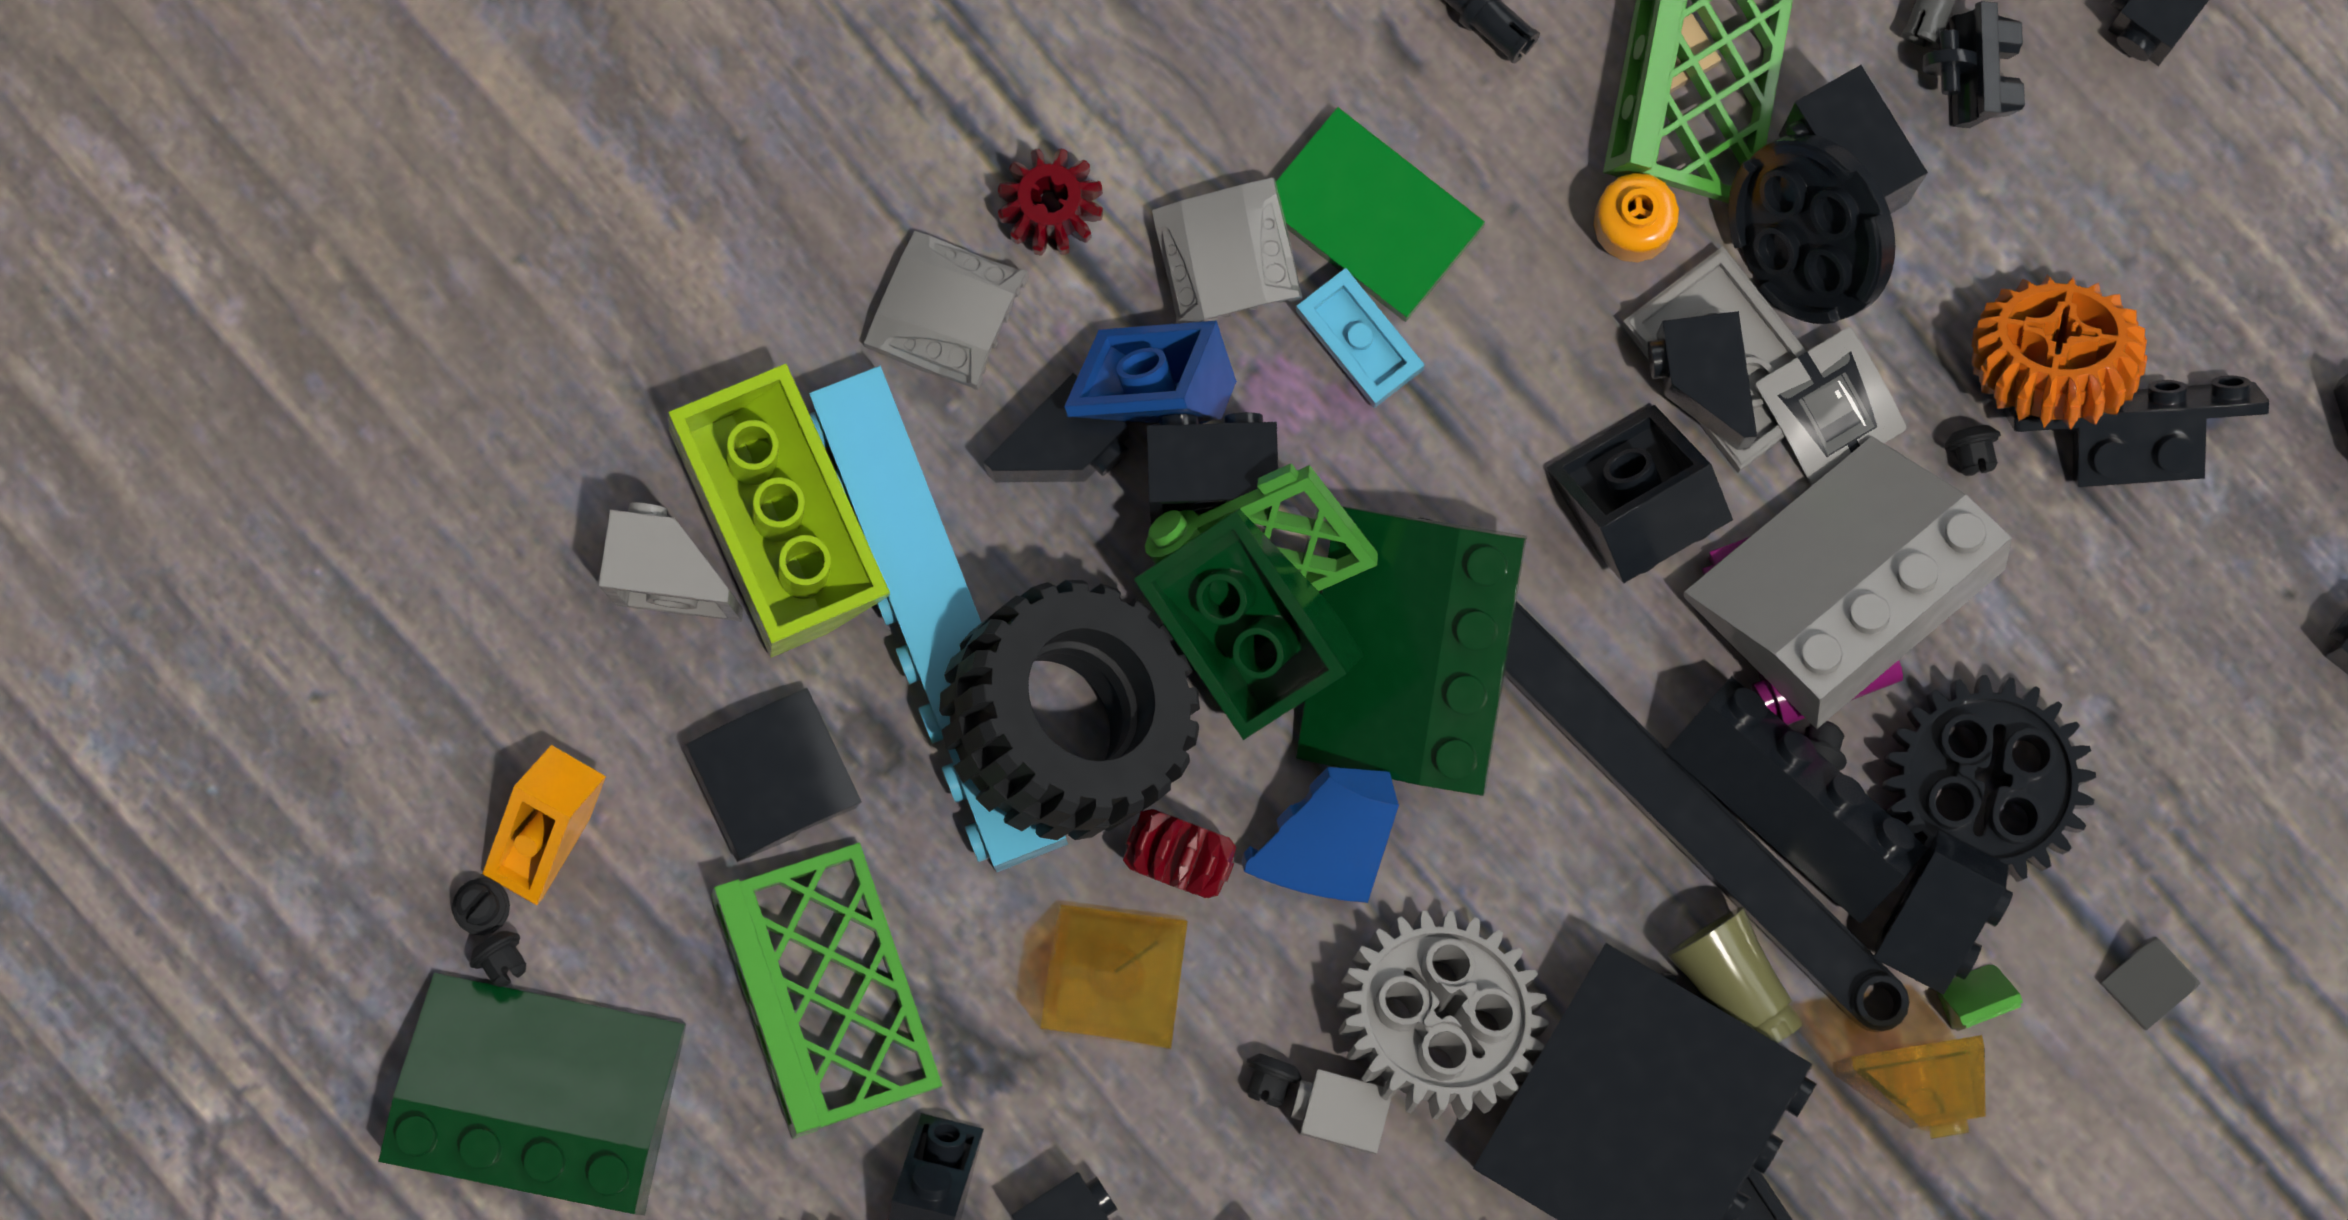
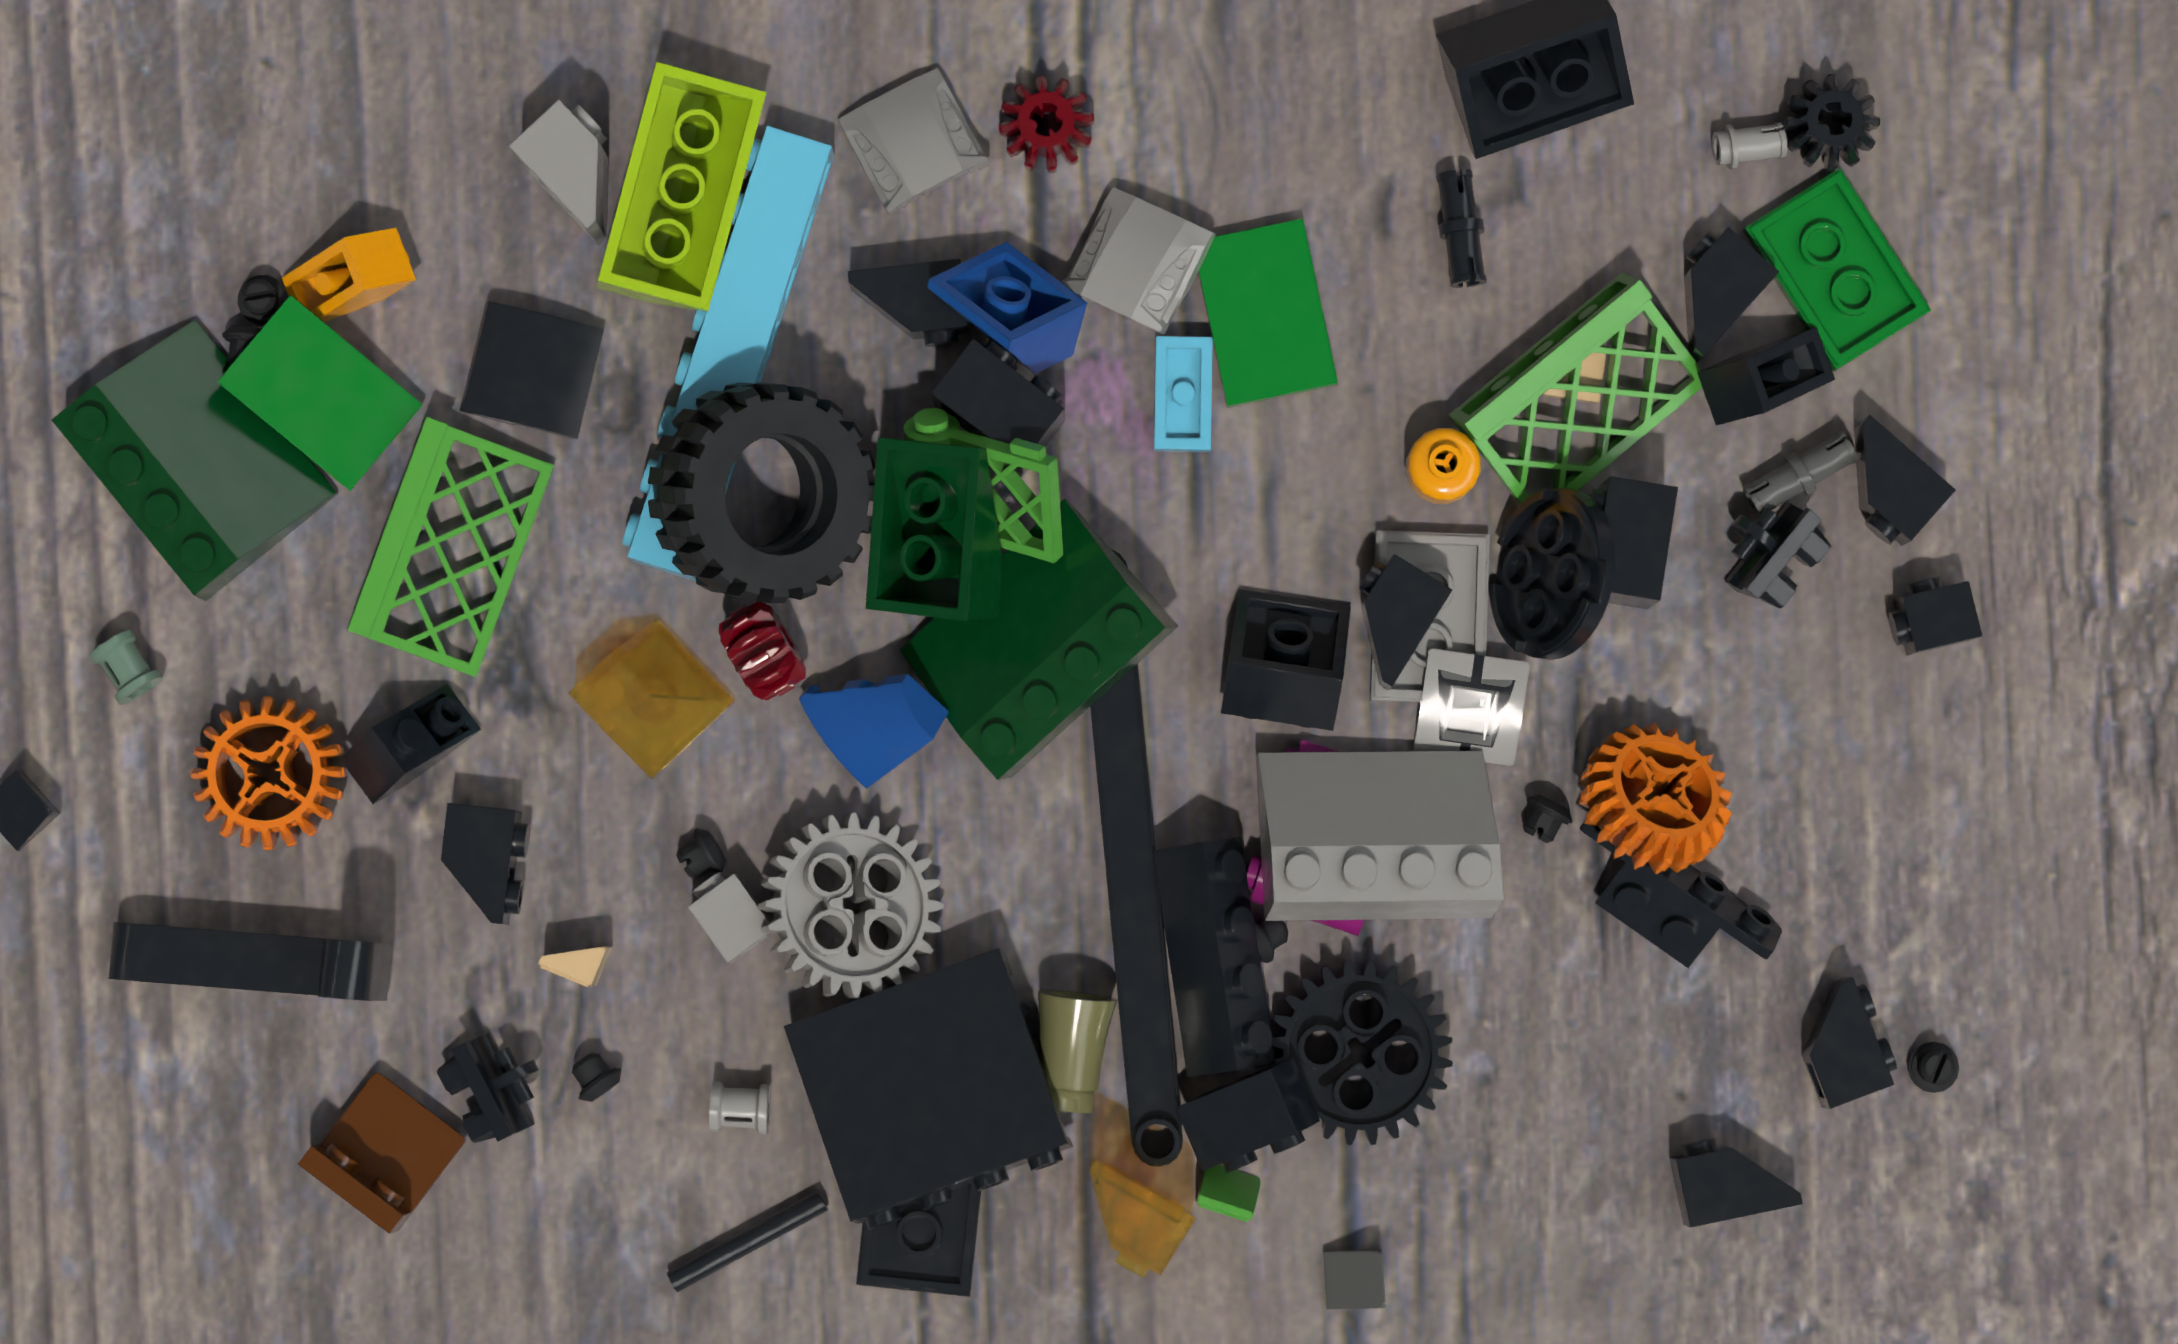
camera: 35 degrees right, 5 degrees up
(599, 945) = (320, 393): none -> green tile

